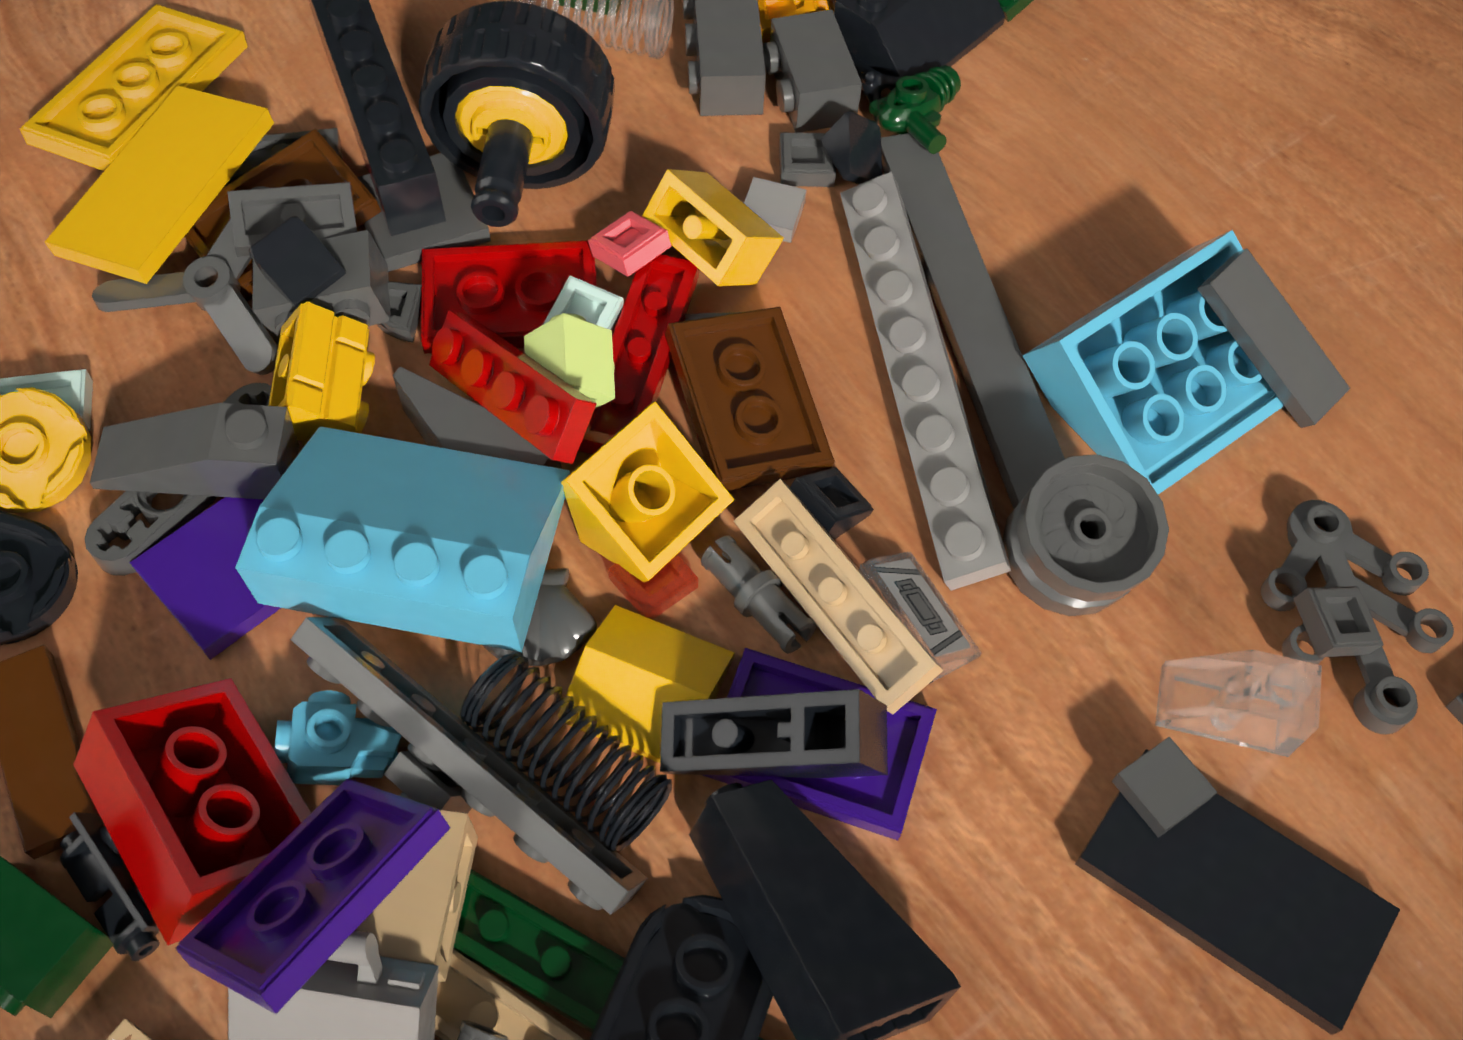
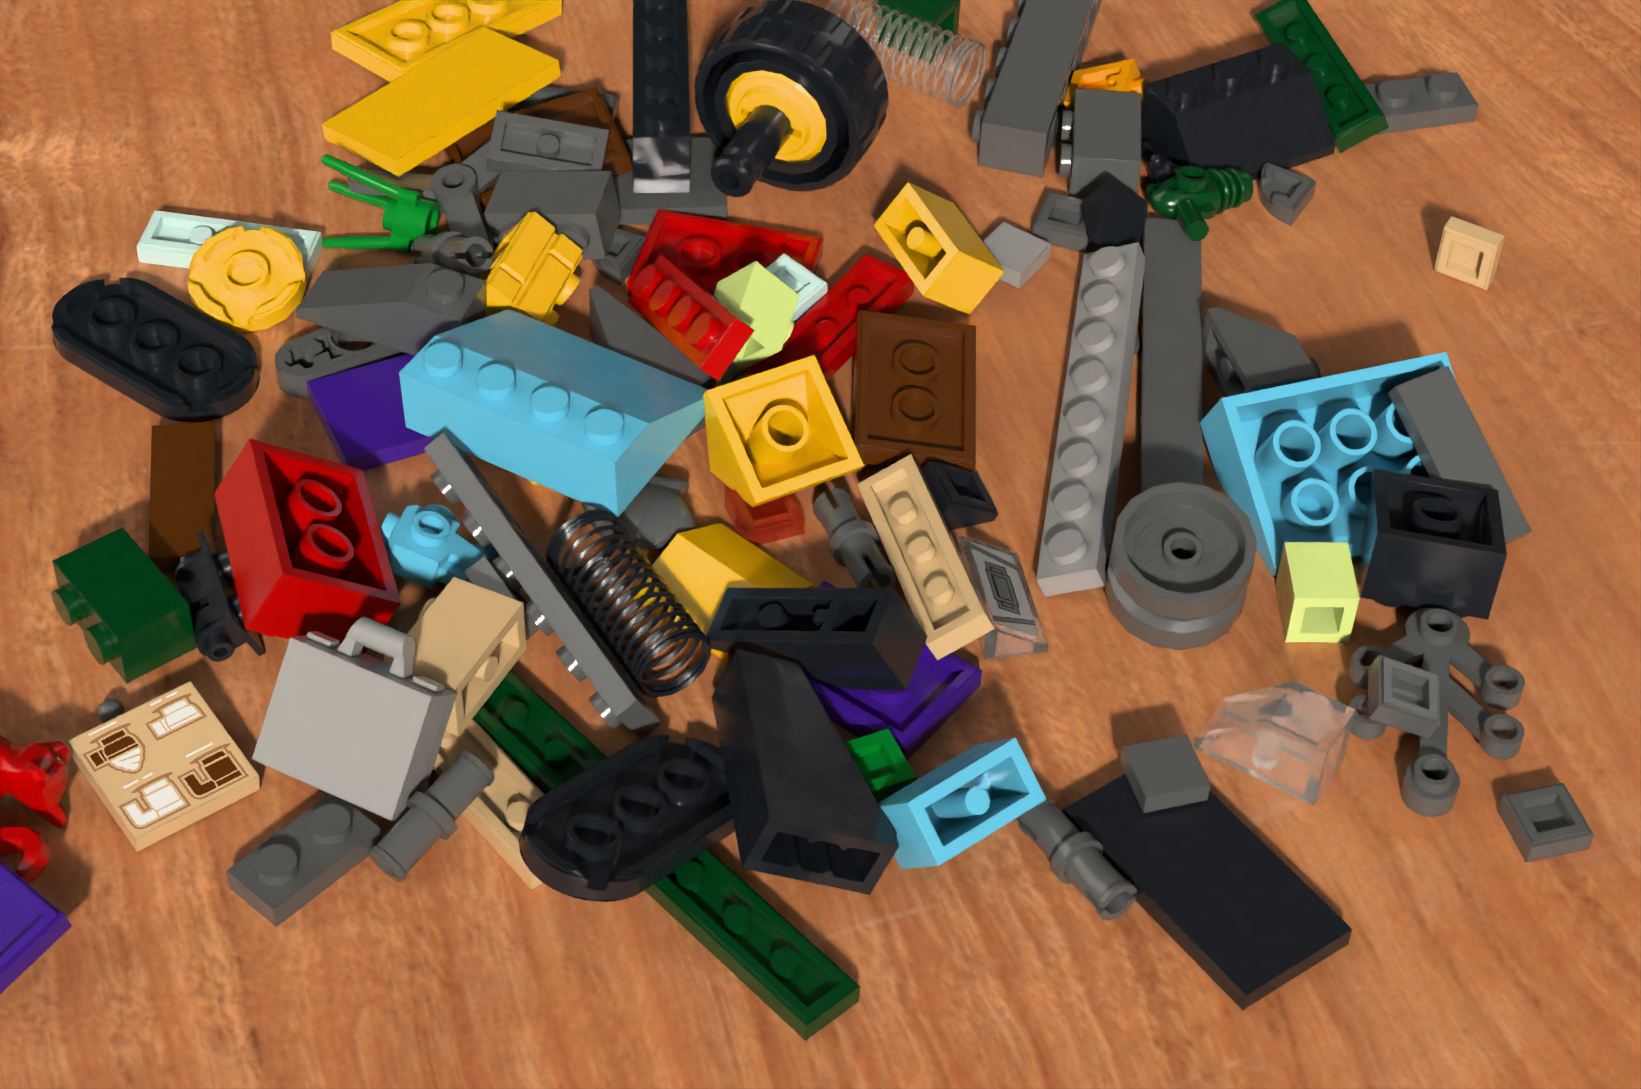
camera: 20 degrees right, 15 degrees down
(167, 325) = (403, 215): none -> green plant
(235, 367) = (454, 252): none -> dark grey pin
(296, 262) = (536, 178): black slope -> none
(312, 892) = (378, 595): dark purple tile -> none
(629, 243) = (853, 243): coral tile -> none
(889, 867) = (881, 763): none -> green plate
(982, 77) = (1284, 192): none -> dark grey tile
(994, 901) = (961, 803): none -> medium azure brick
(1046, 277) = (1252, 355): none -> dark grey slope
(1118, 915) = (1078, 859): none -> dark grey pin
(1172, 103) = (1469, 253): none -> tan tile
(1206, 516) = (1317, 592): none -> yellowish green brick
(1287, 435) = (1431, 544): none -> black slope

